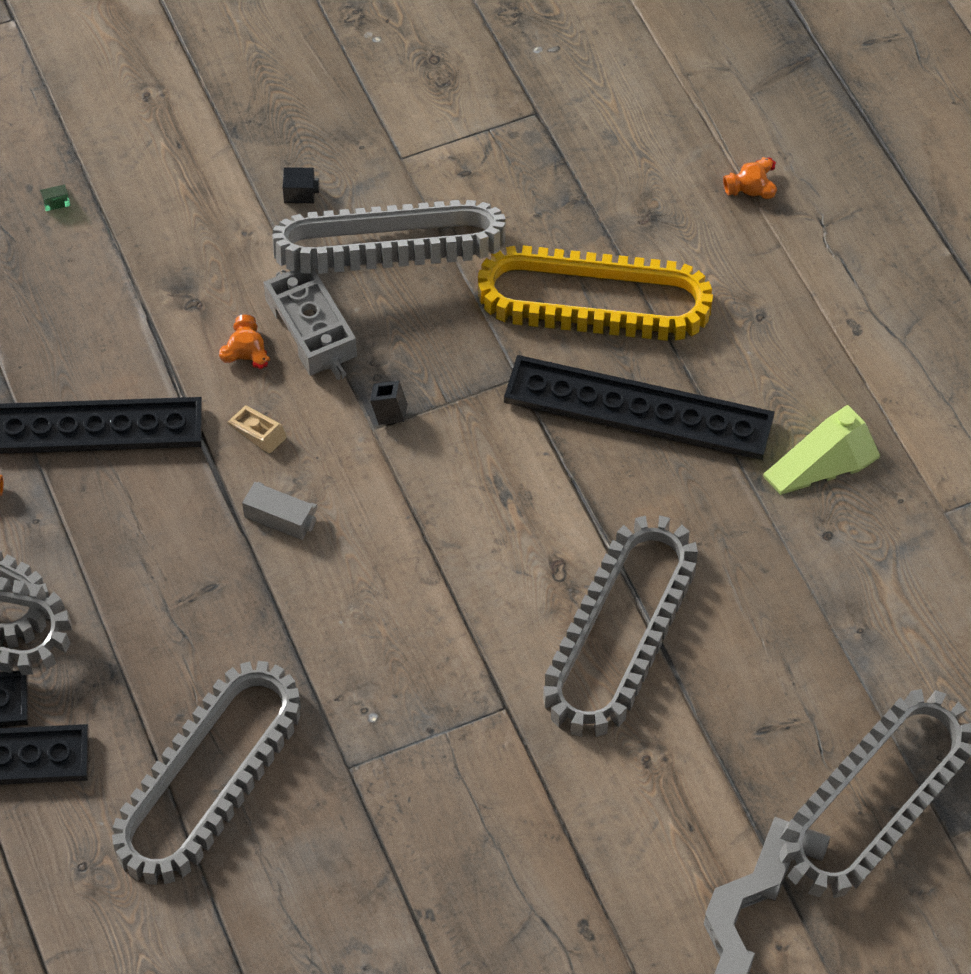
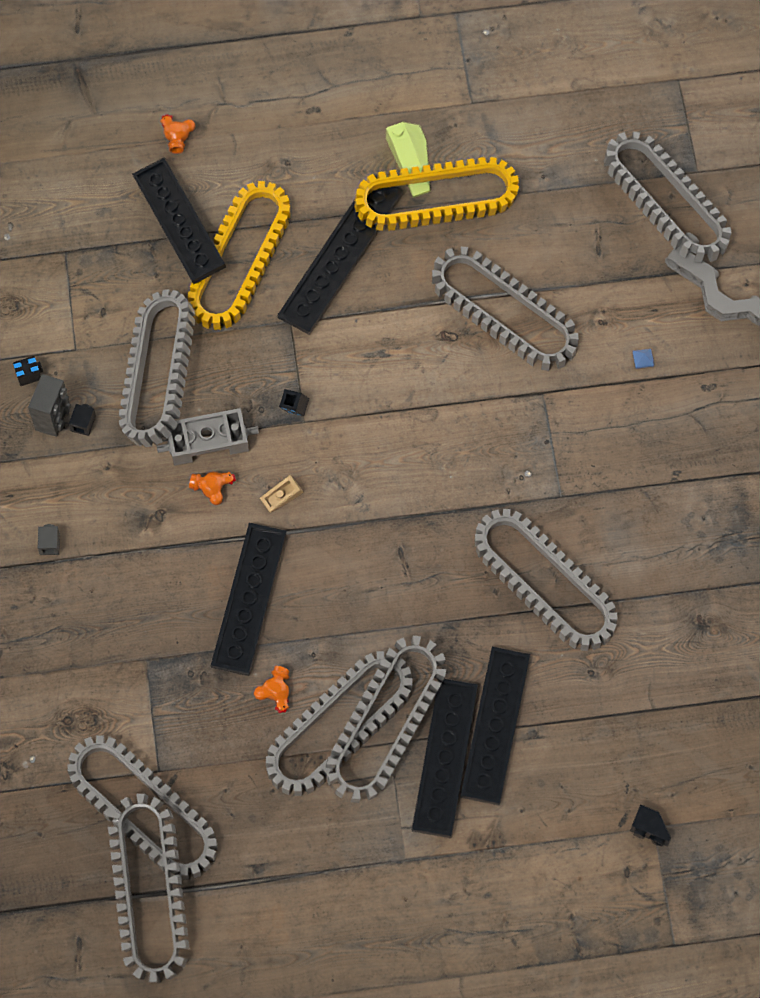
camera: 75 degrees left, 10 degrees up
(55, 197) = (31, 589): clear green slope -> none
(123, 193) = (48, 540): none -> dark grey brick
(279, 510) = (357, 493): light grey brick -> none
(297, 134) = (49, 405): none -> dark grey brick
(350, 112) = (28, 370): none -> black brick
(603, 827) = (643, 358): none -> medium blue slope
(615, 209) = (179, 220): none -> black plate
(795, 474) = (437, 173): none -> yellow piece

